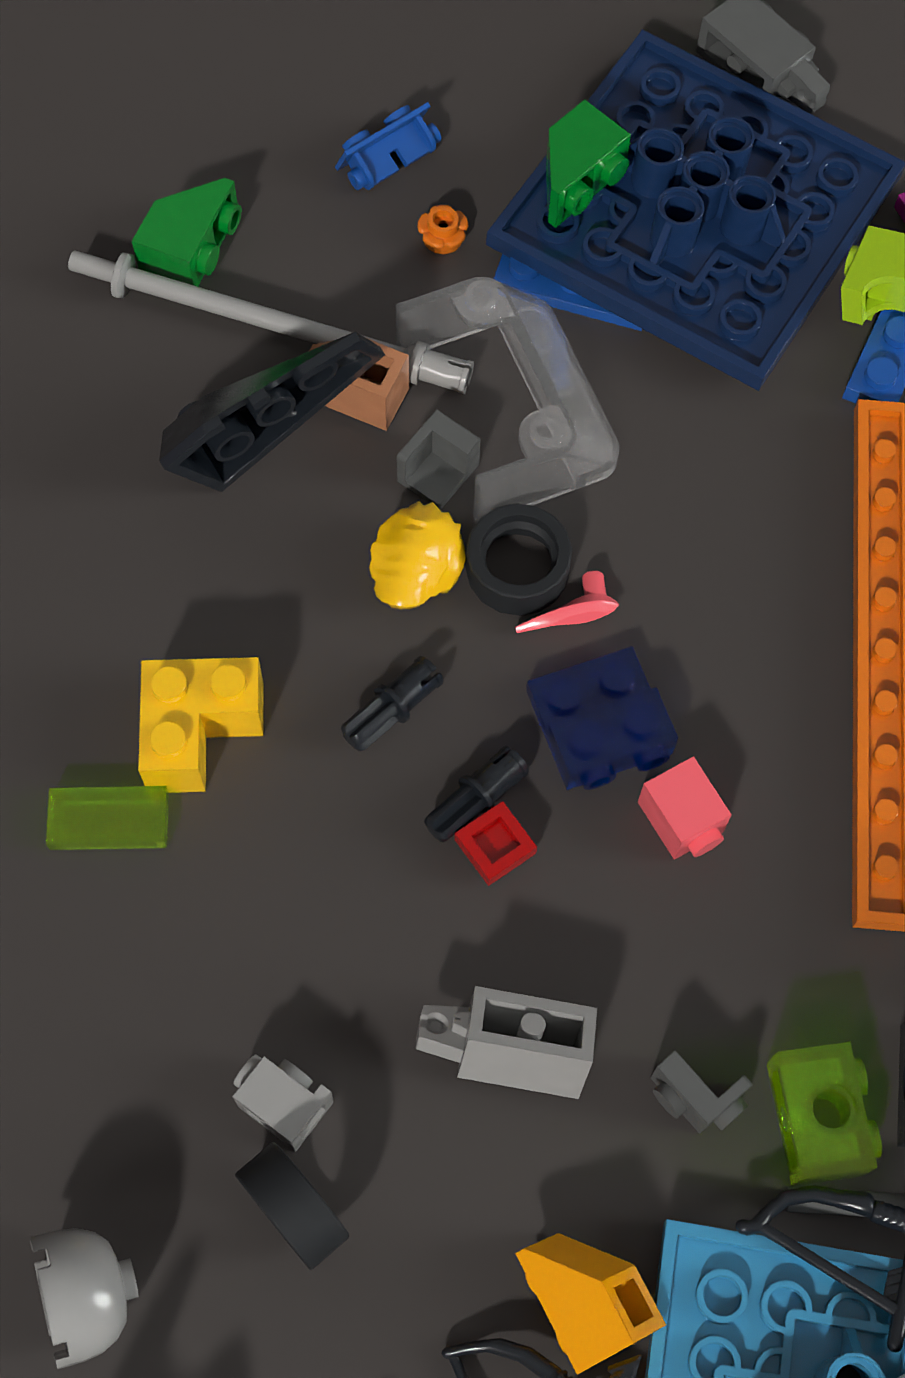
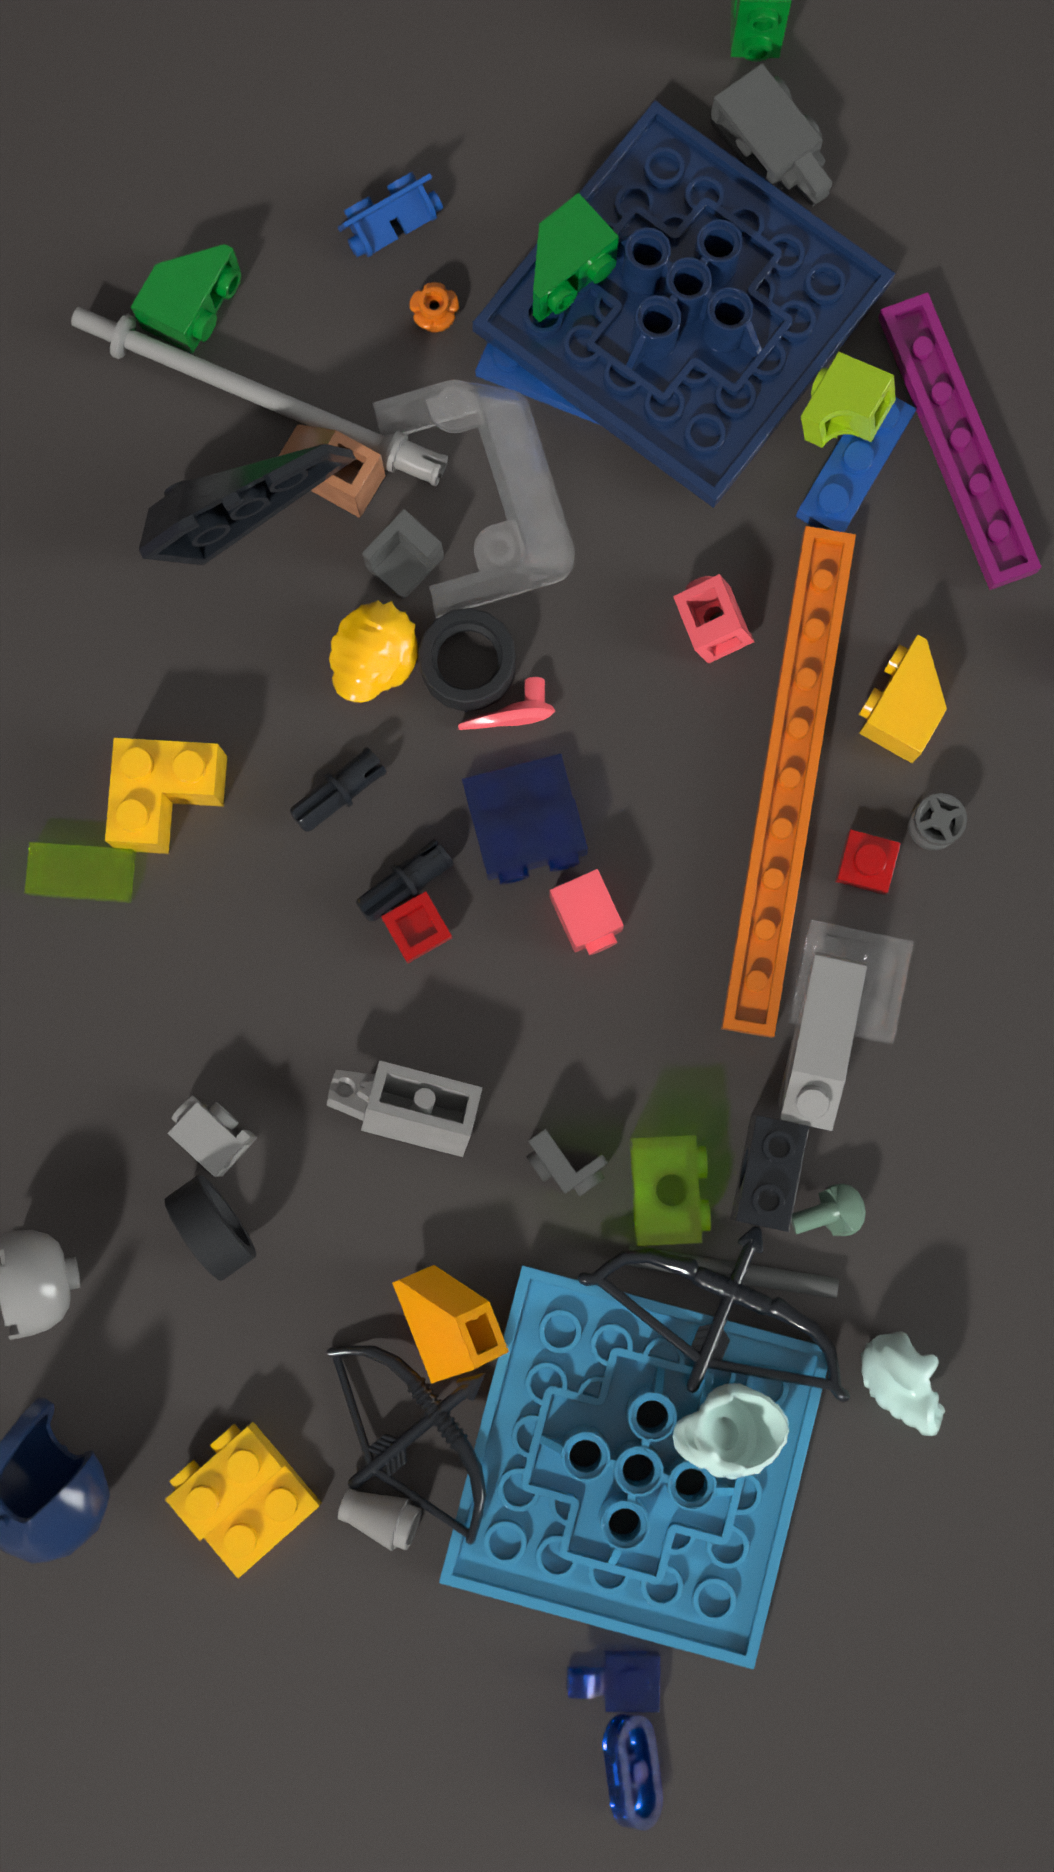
camera: 10 degrees right, 15 degrees up
(777, 496) = (715, 637): none -> coral brick

